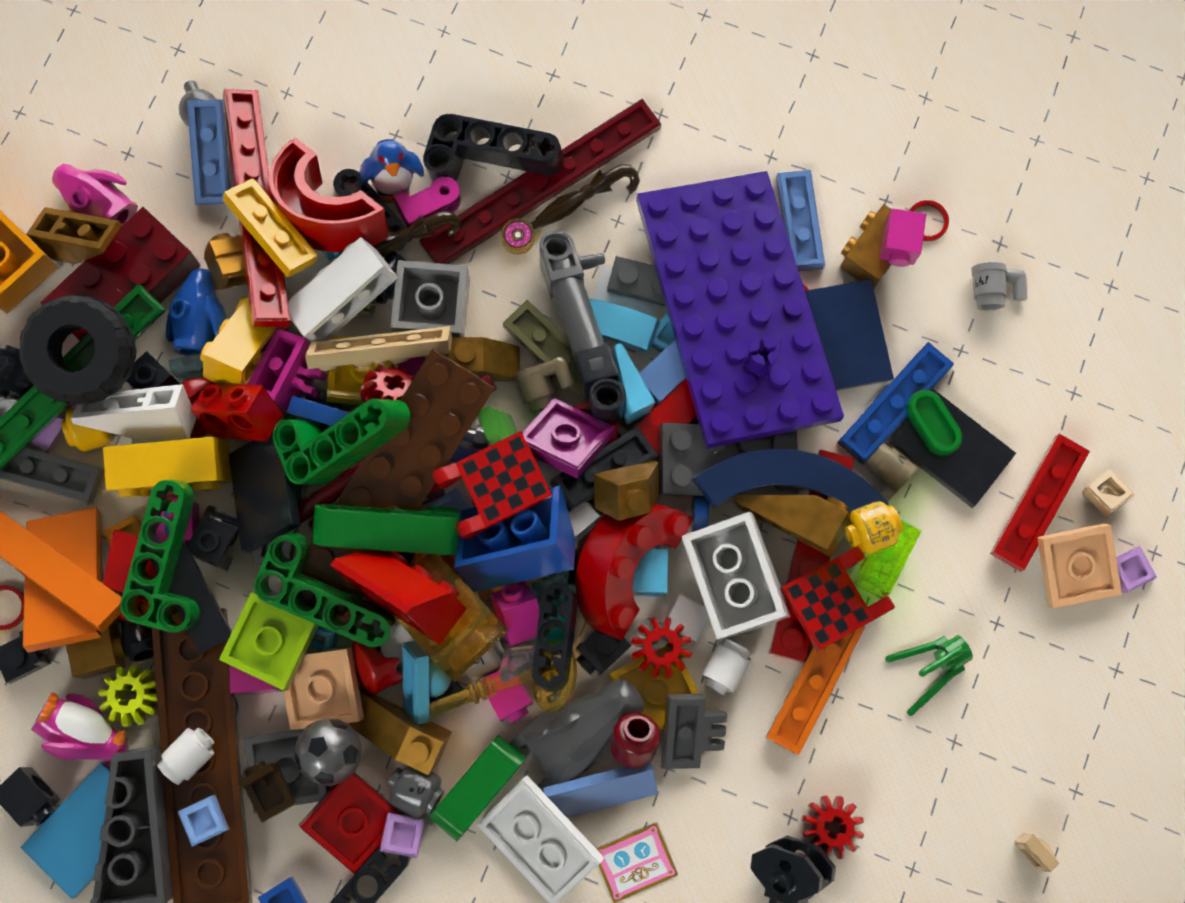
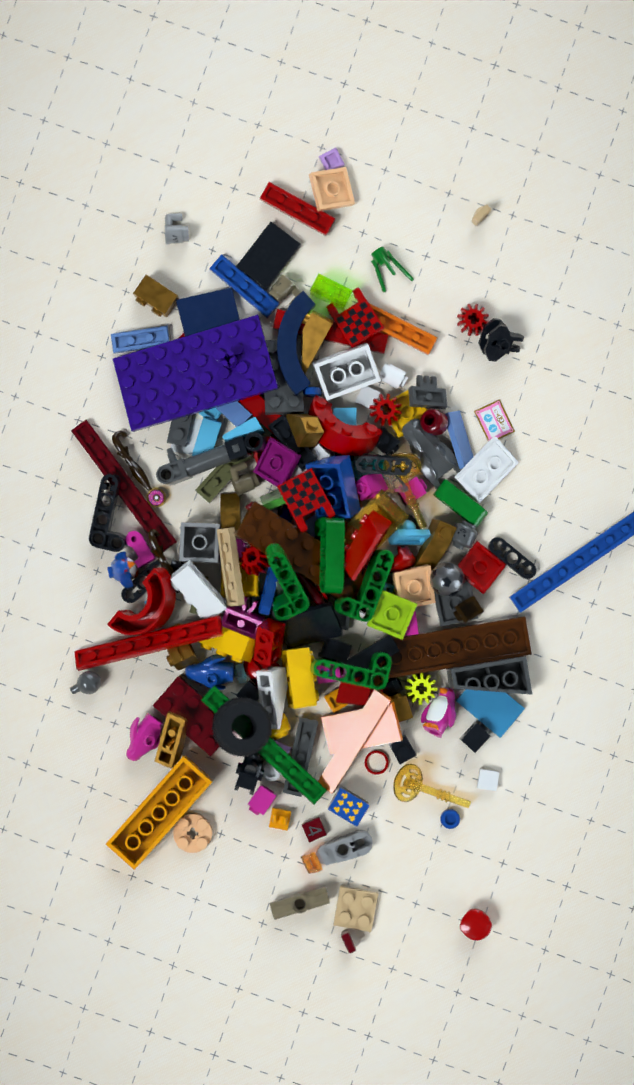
camera: 90 degrees left, 10 degrees up
(186, 755) = (451, 652): white brick -> none
(203, 820) = (483, 642): light blue tile -> none
(208, 150) = (115, 673): medium blue tile -> none
(270, 227) = (165, 631): yellow plate -> none
(402, 835) = (486, 540): lavender tile -> none
(874, 527) = (319, 298): yellow head -> none
(902, 237) = (155, 282): dark pink brick -> none
(934, 422) = (256, 265): green tile -> none
(941, 209) = (132, 258): red piece -> none
(1108, 493) = (291, 172): tan tile -> none

